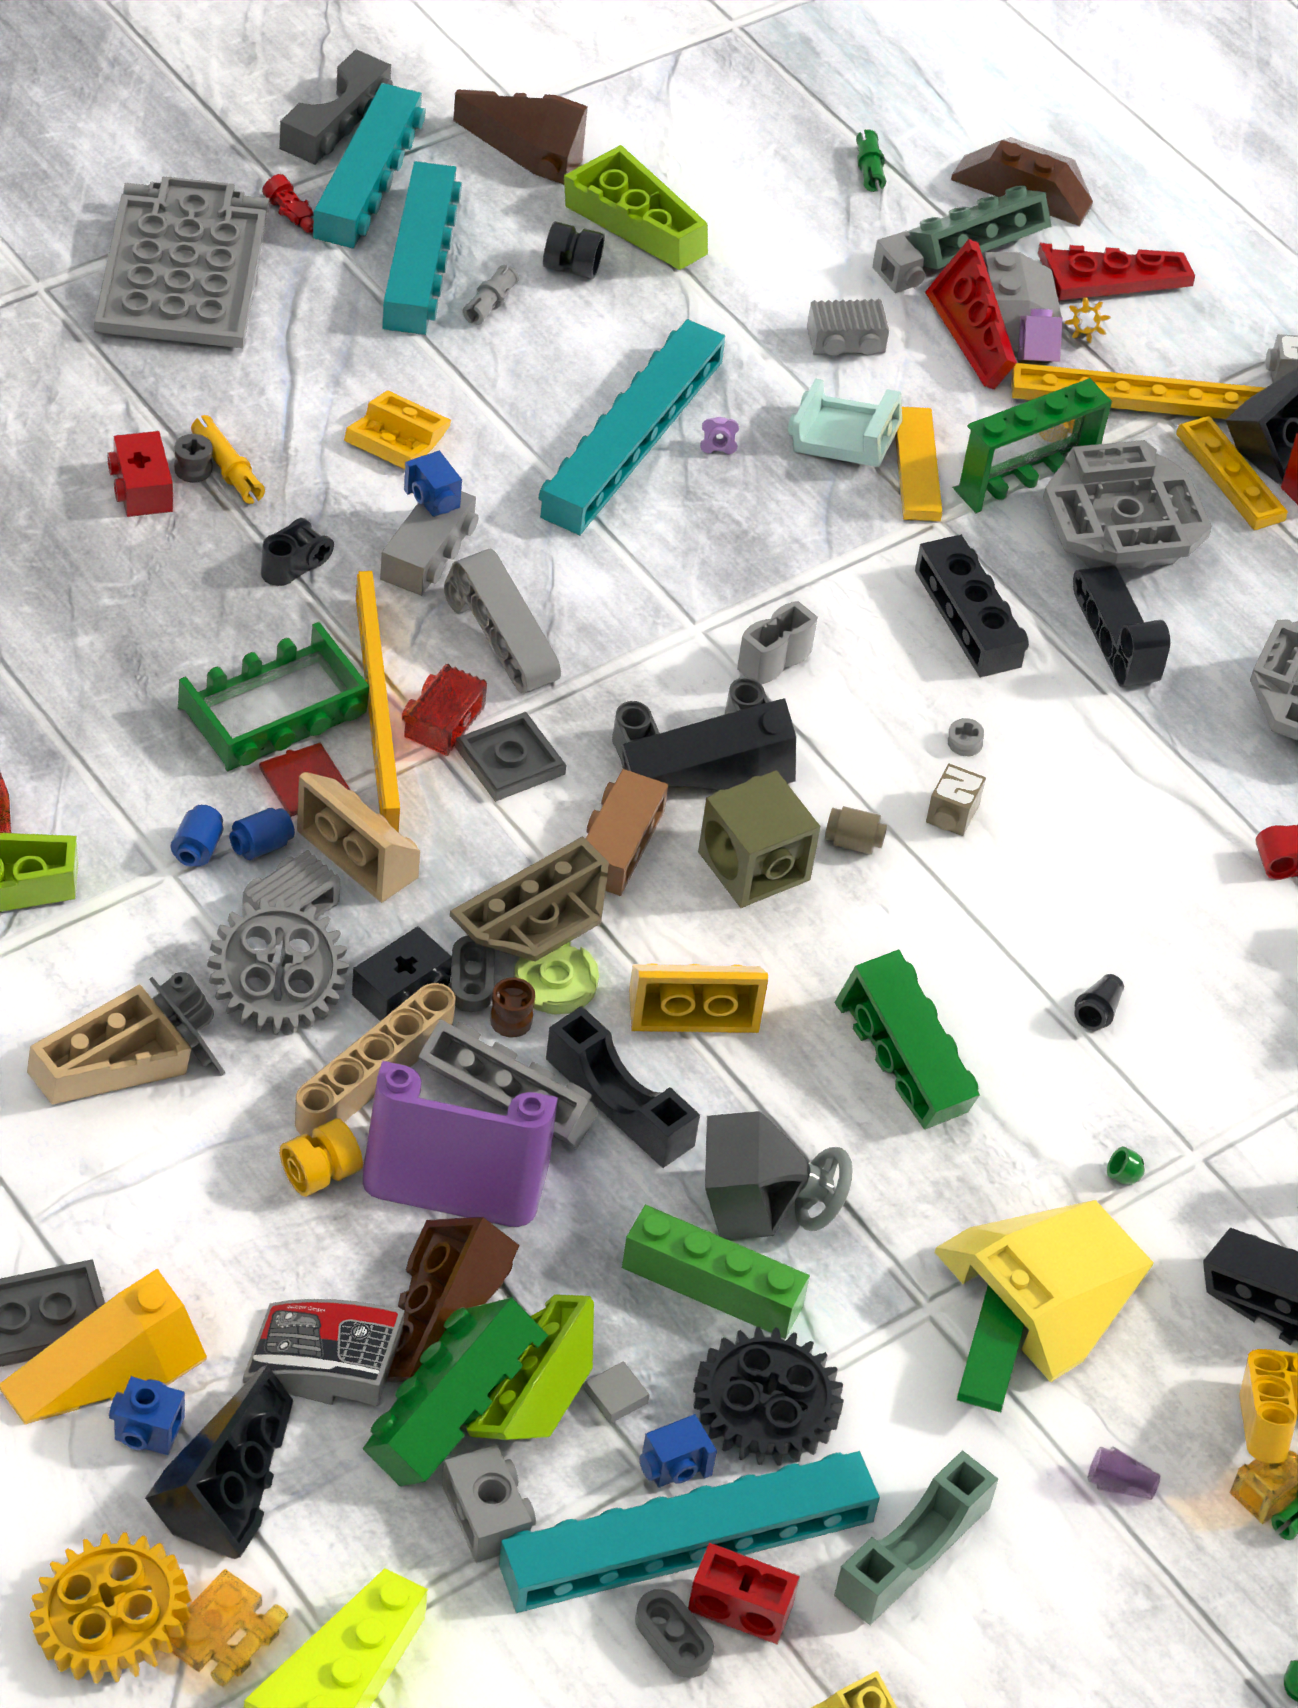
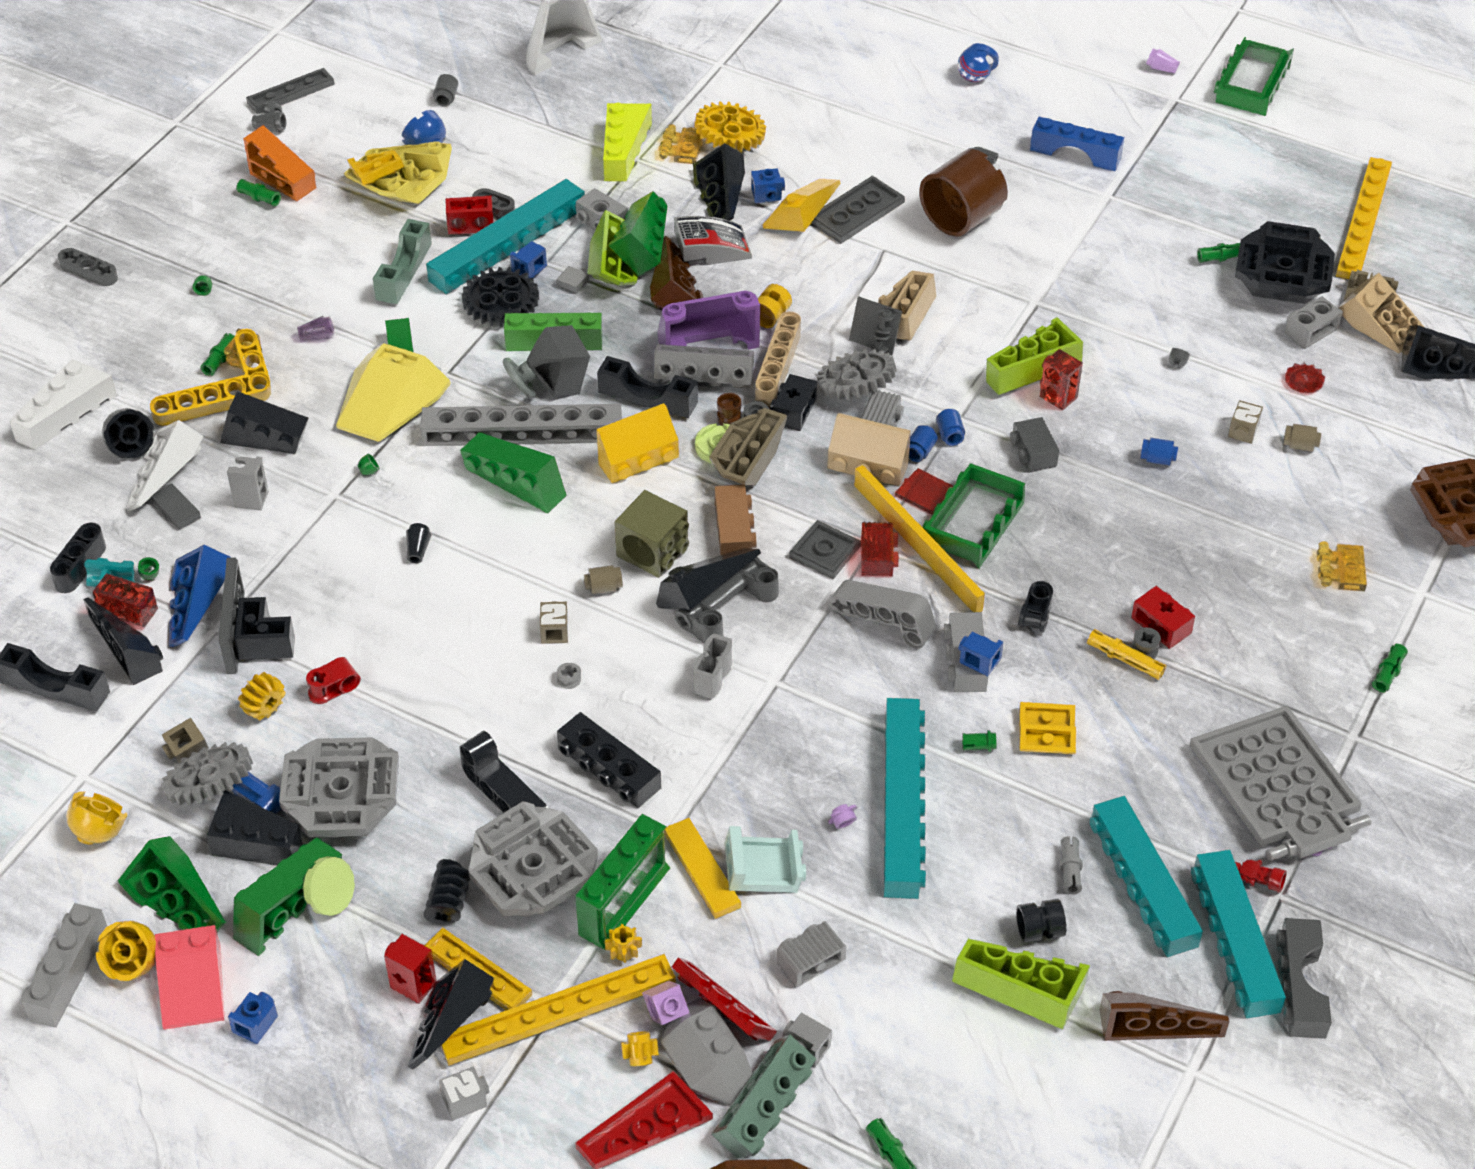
camera: 160 degrees right, 0 degrees up
(99, 758) = (1034, 444): none -> dark grey brick
(493, 446) = (979, 741): none -> green pin
(864, 1125) = (517, 423): none -> light grey brick
(1239, 539) = (447, 892): none -> black piece

